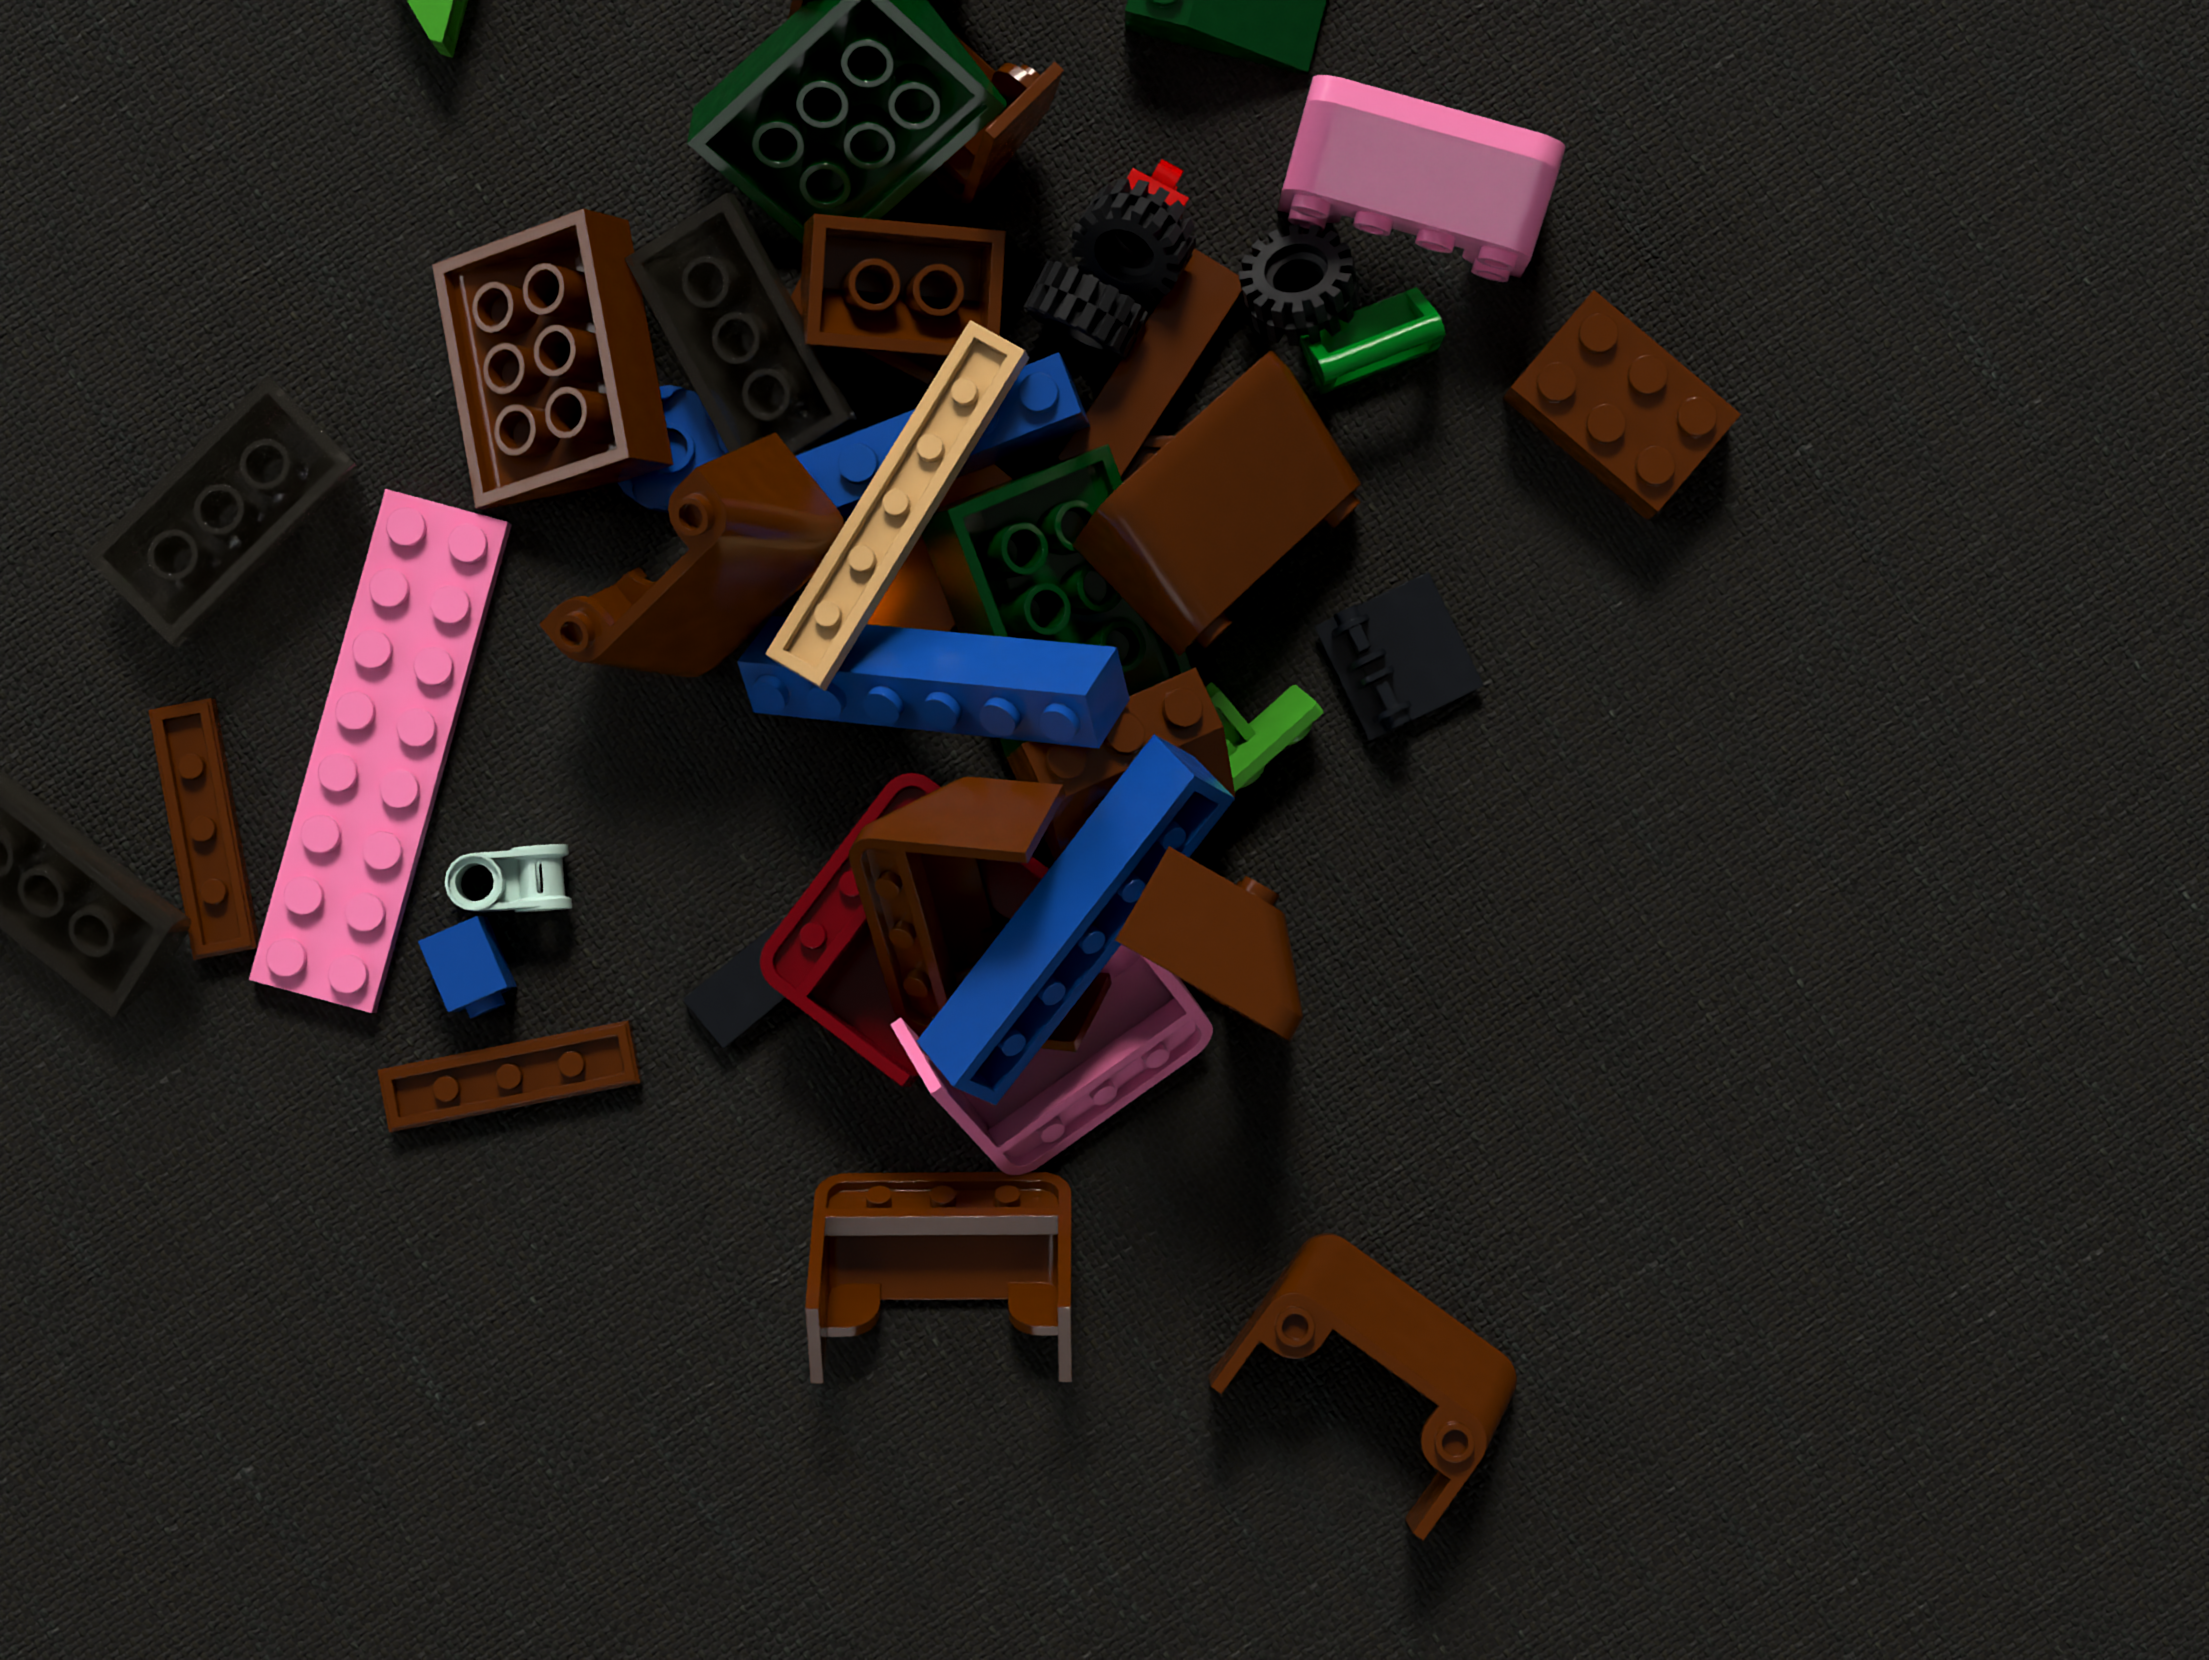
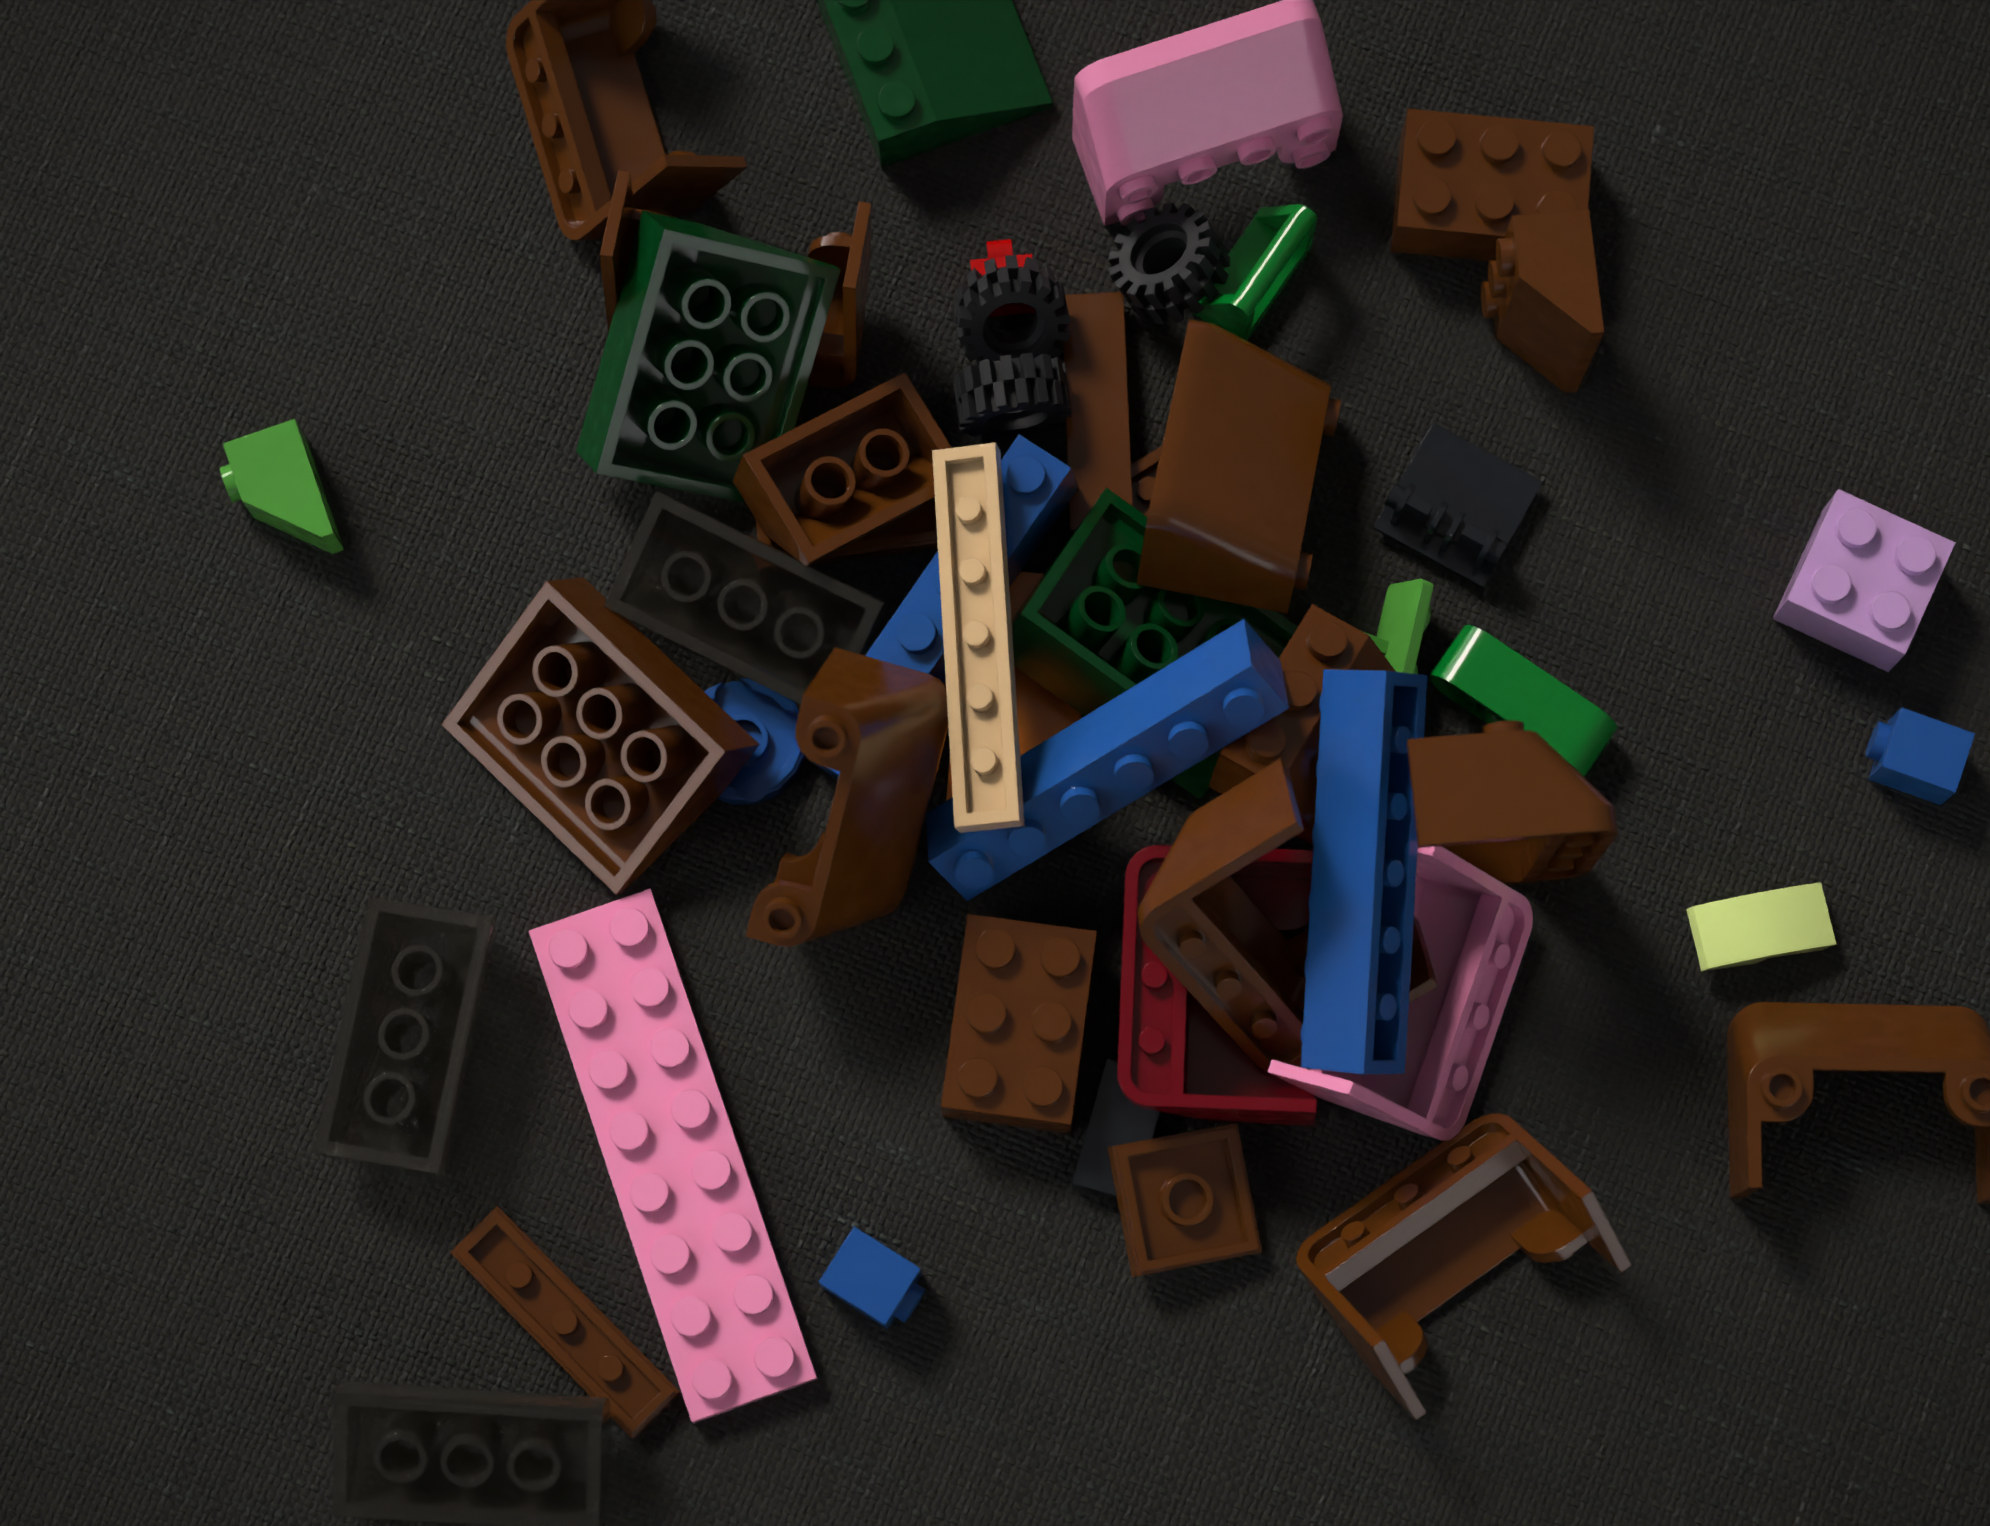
camera: 35 degrees left, 10 degrees down
(510, 1076) = (969, 1352): reddish brown tile -> none
(515, 879) = (862, 1180): light aqua piece -> none
(726, 842) = (1018, 1023): none -> reddish brown brick
(763, 1075) = (1184, 1200): none -> reddish brown tile
(1330, 860) = (1506, 686): none -> green beam
(1391, 1179) = (1761, 926): none -> yellowish green slope
(1588, 531) = (1547, 294): none -> reddish brown slope
(1623, 1129) = (1919, 755): none -> blue brick
(1686, 955) = (1864, 580): none -> lavender brick

